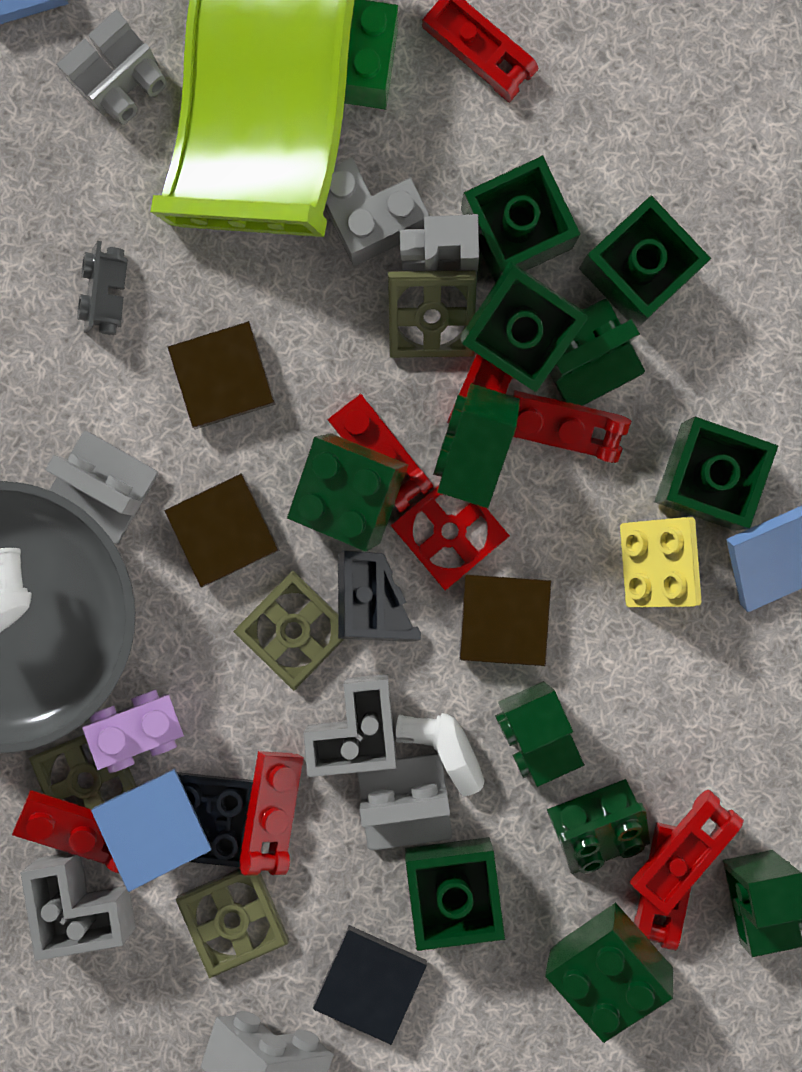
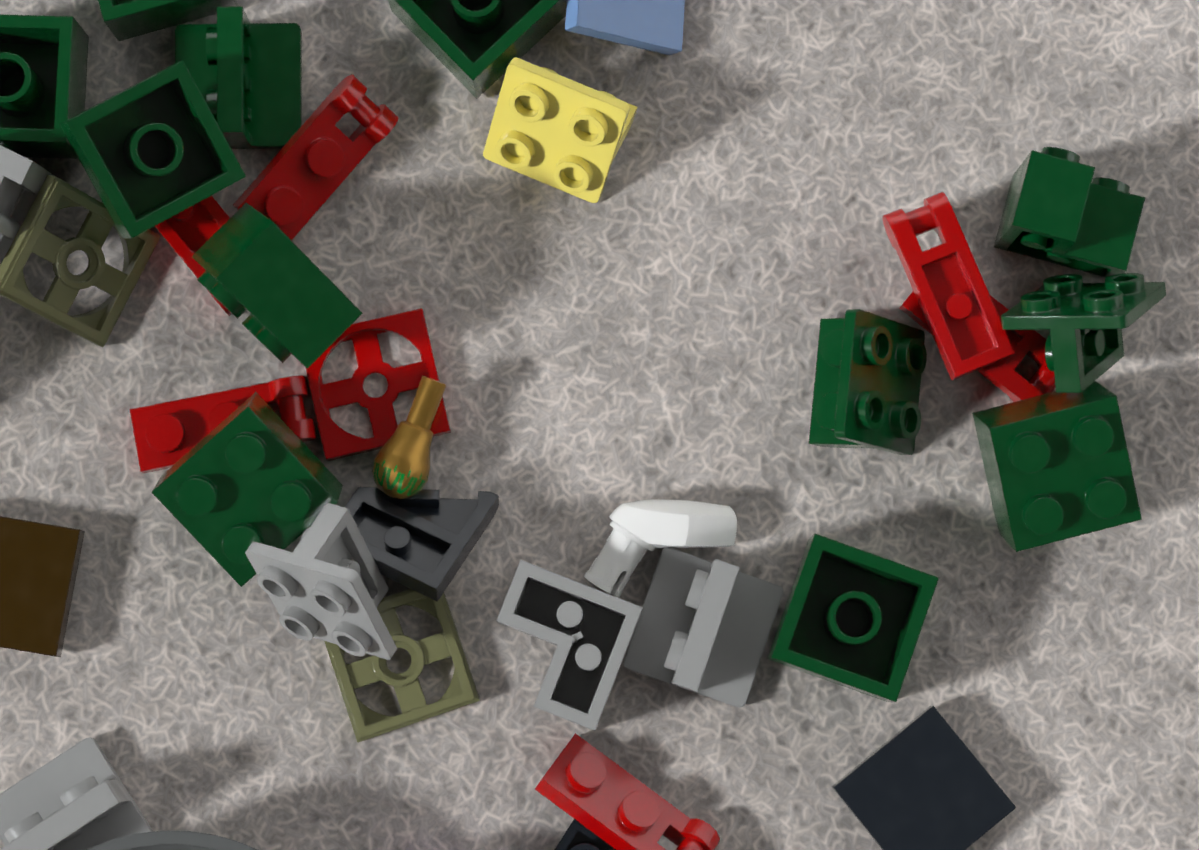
camera: 60 degrees left, 5 degrees down
(221, 530) = (214, 687): dark brown tile -> none
(312, 571) = (327, 585): none -> light grey bracket
(412, 574) = (404, 460): none -> pearl gold piece
(505, 620) = (529, 370): dark brown tile -> none
(542, 733) = (700, 399): dark green brick -> none
(709, 947) = (1083, 322): none -> dark green bracket

